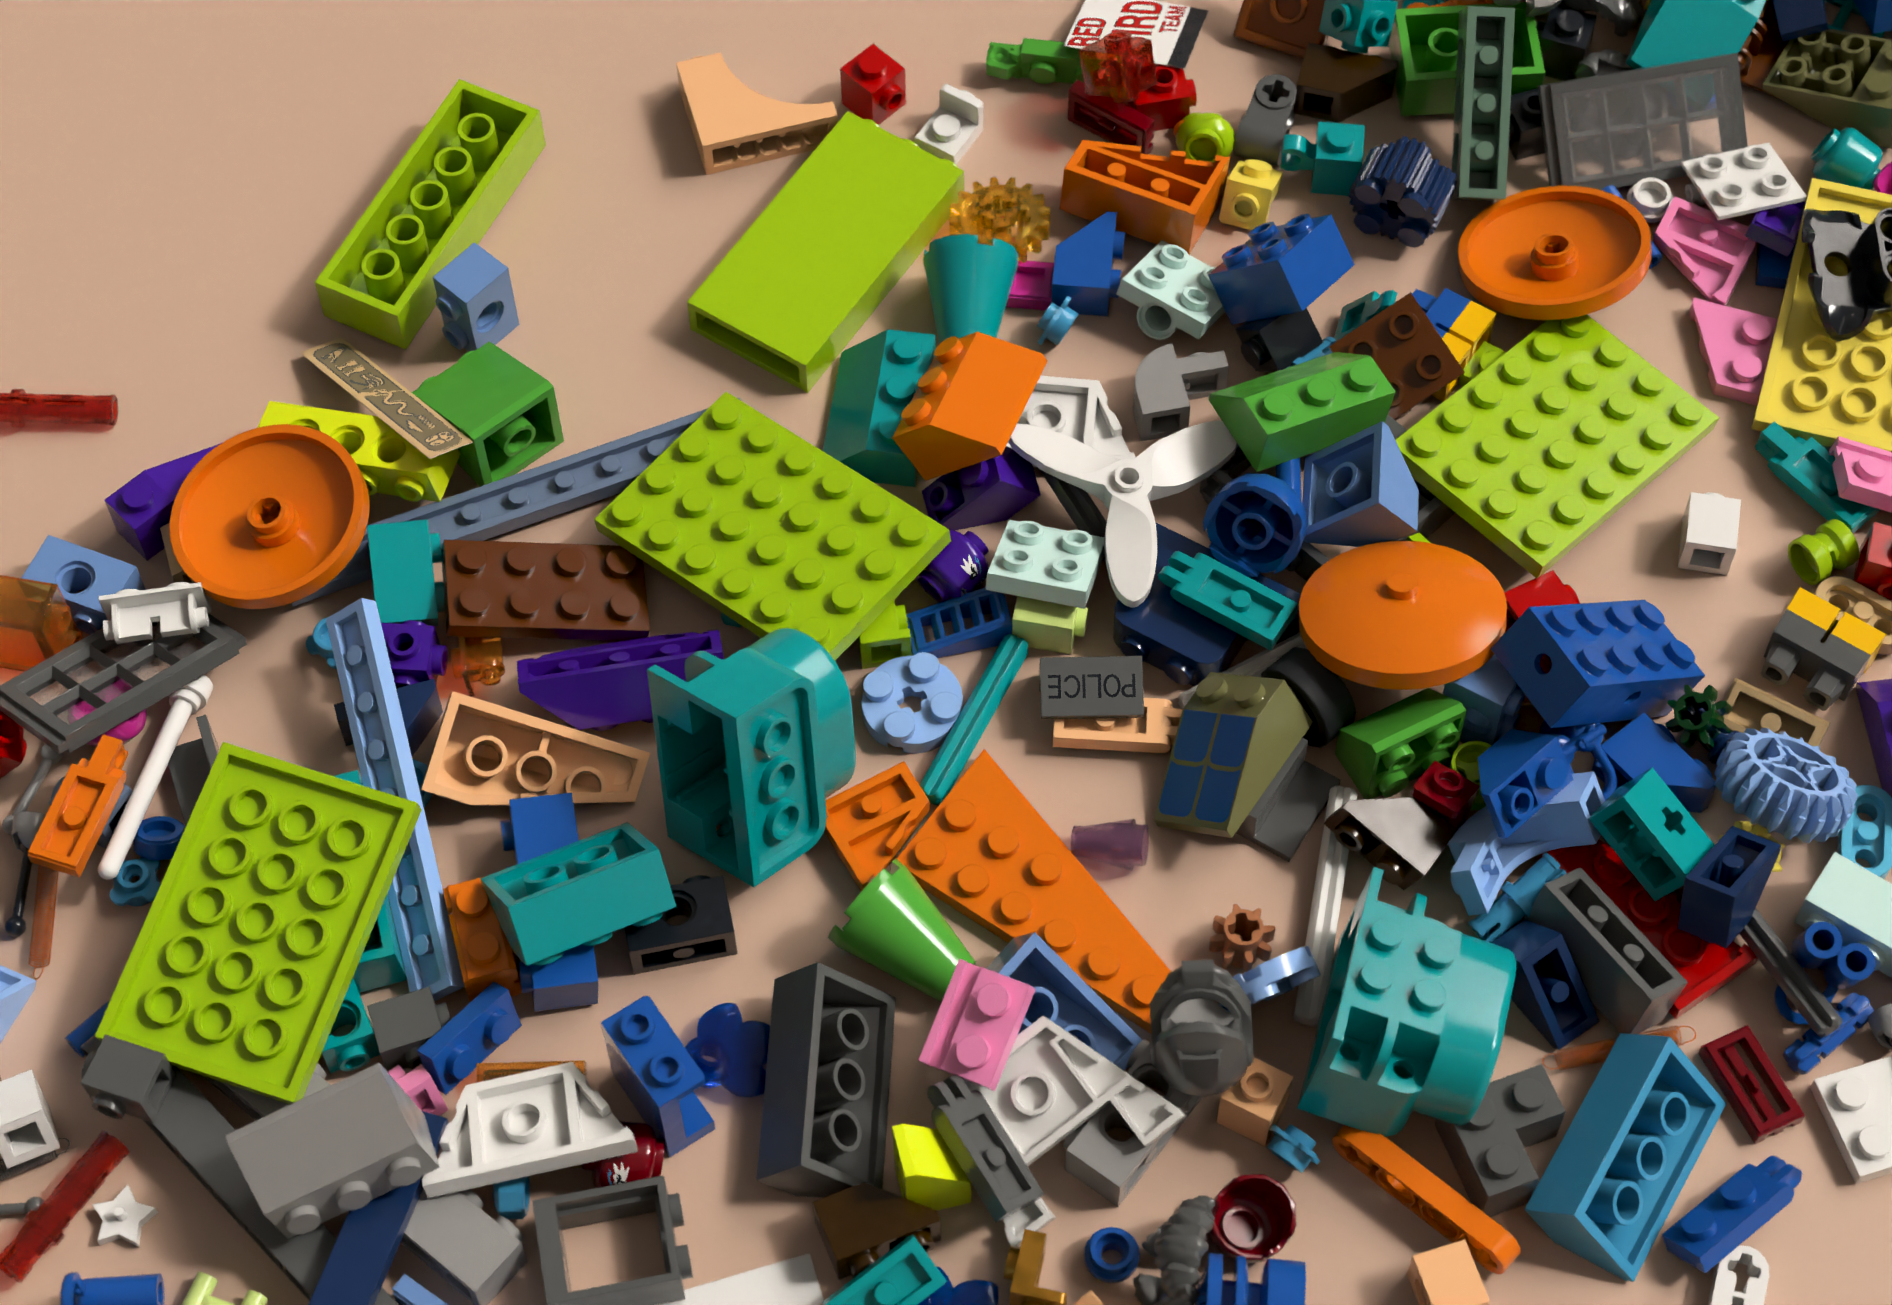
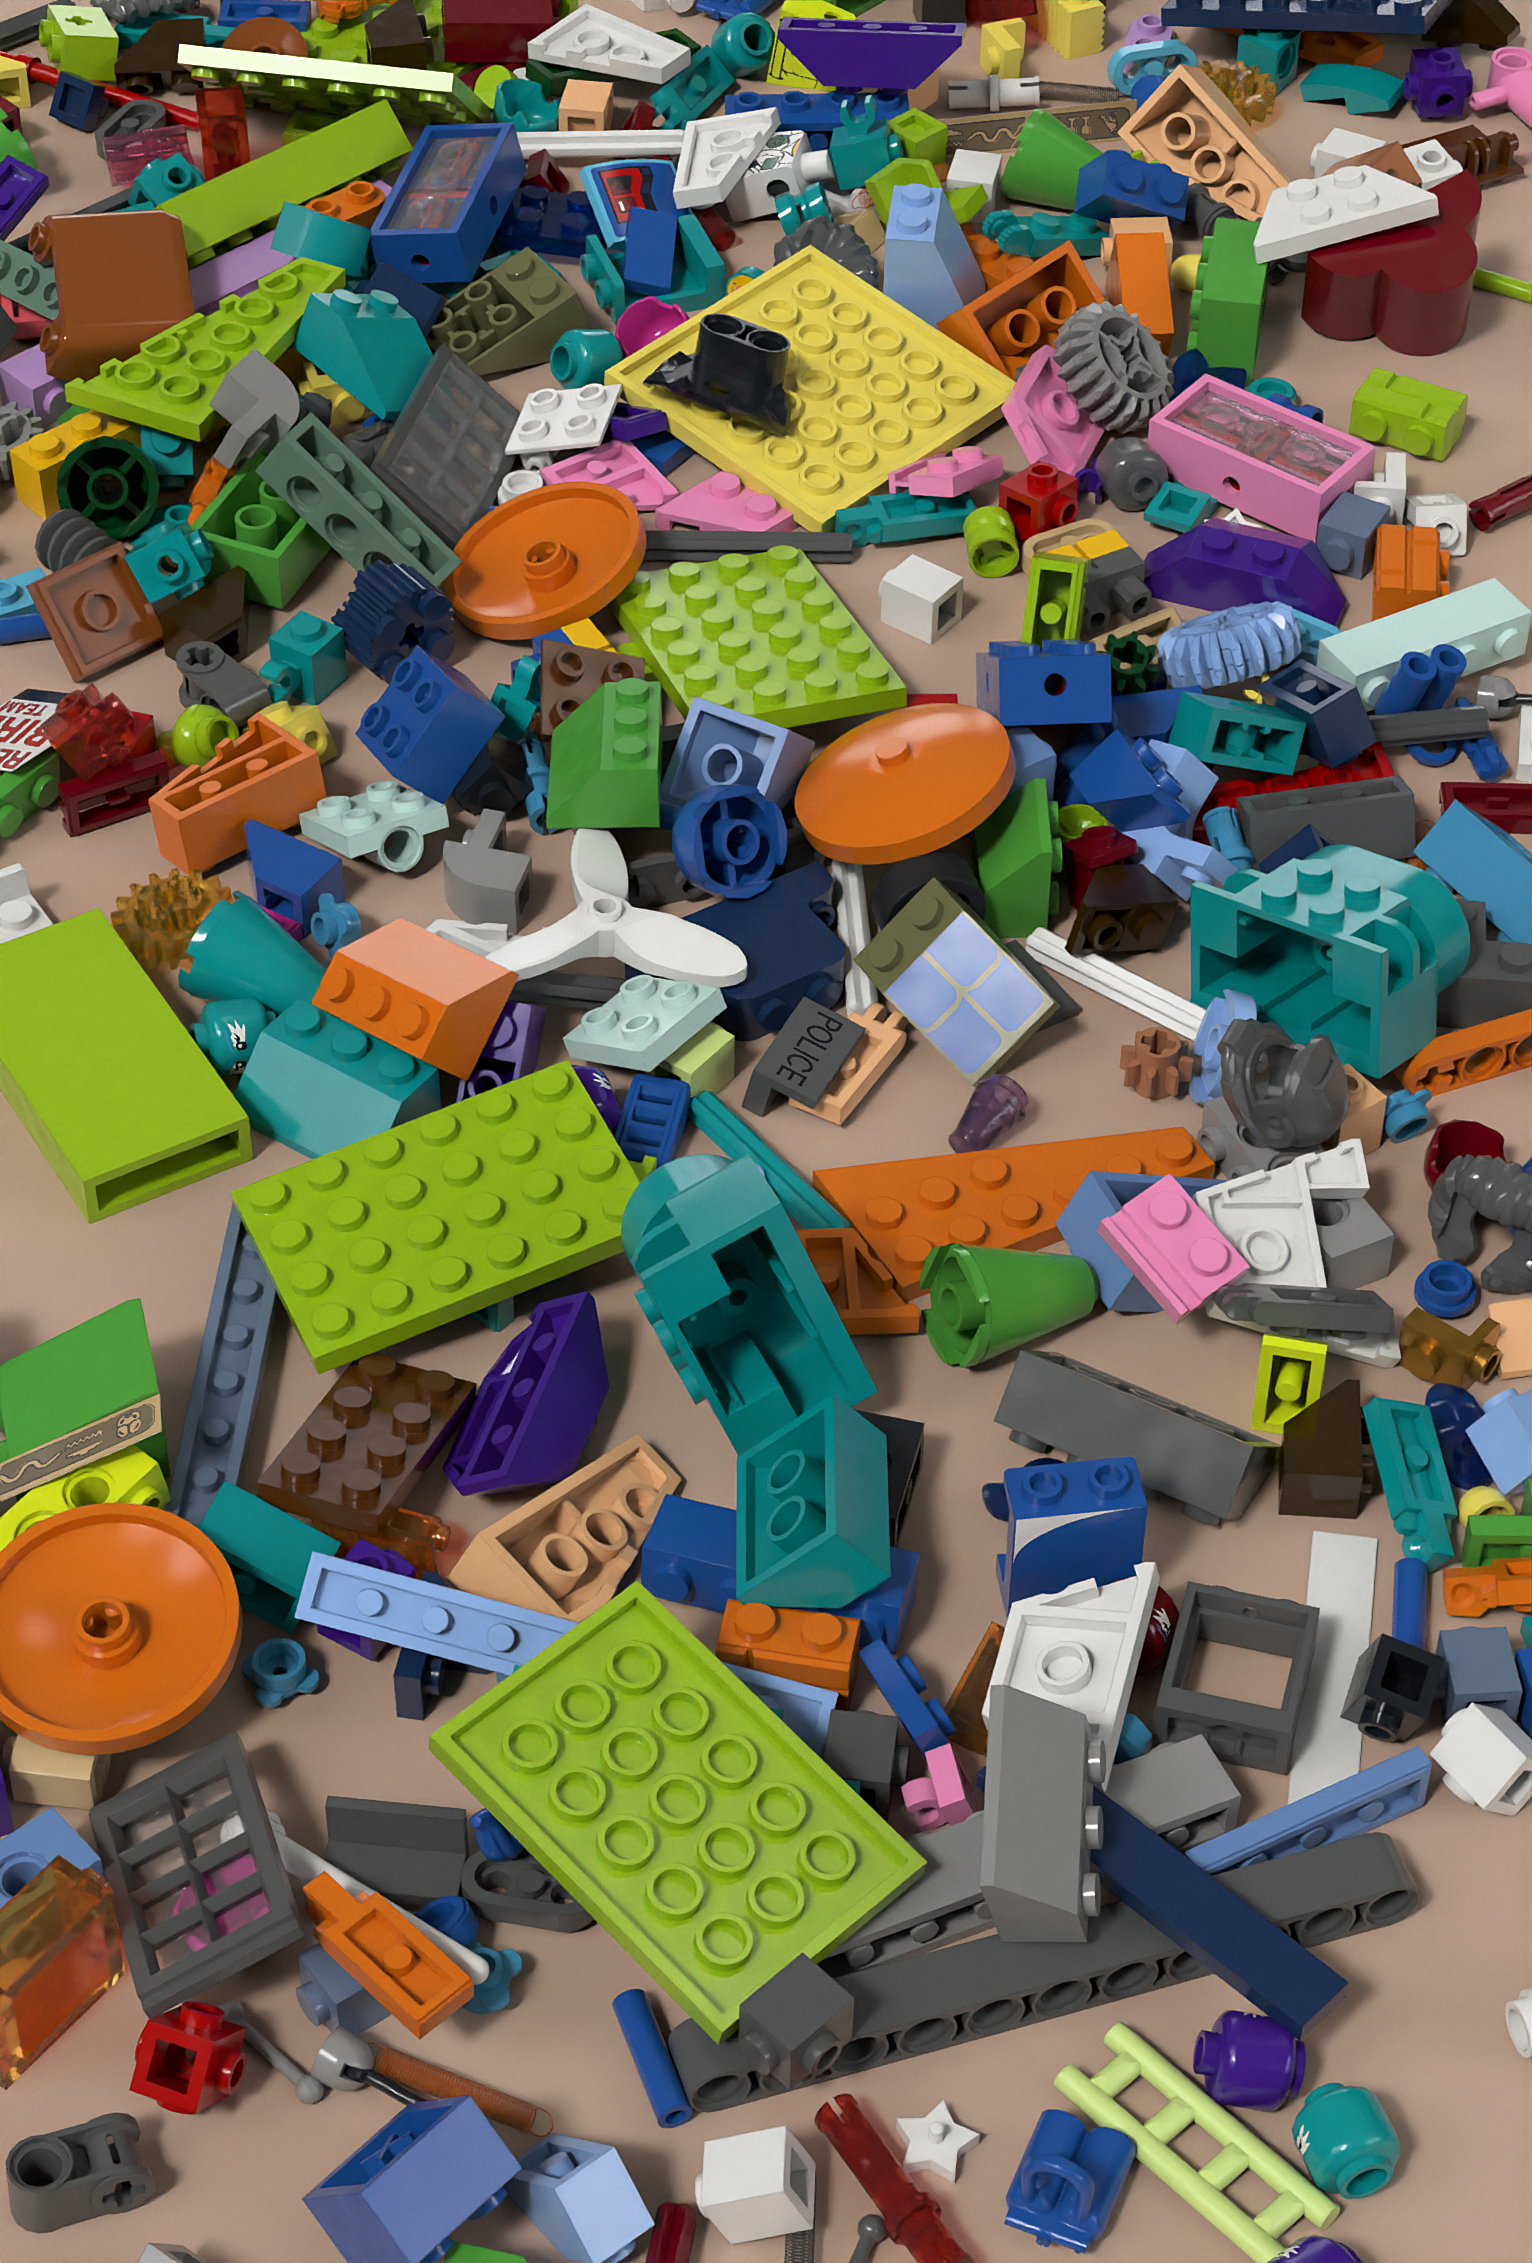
camera: 65 degrees left, 15 degrees down
(178, 607) = (132, 1820): white hinge -> none
(898, 310) = (230, 1032): none -> teal head
(1228, 597) = (790, 901): teal hinge -> none
(1692, 373) = (711, 545): none -> dark grey axle
(1736, 630) = (1055, 598): none -> lime brick

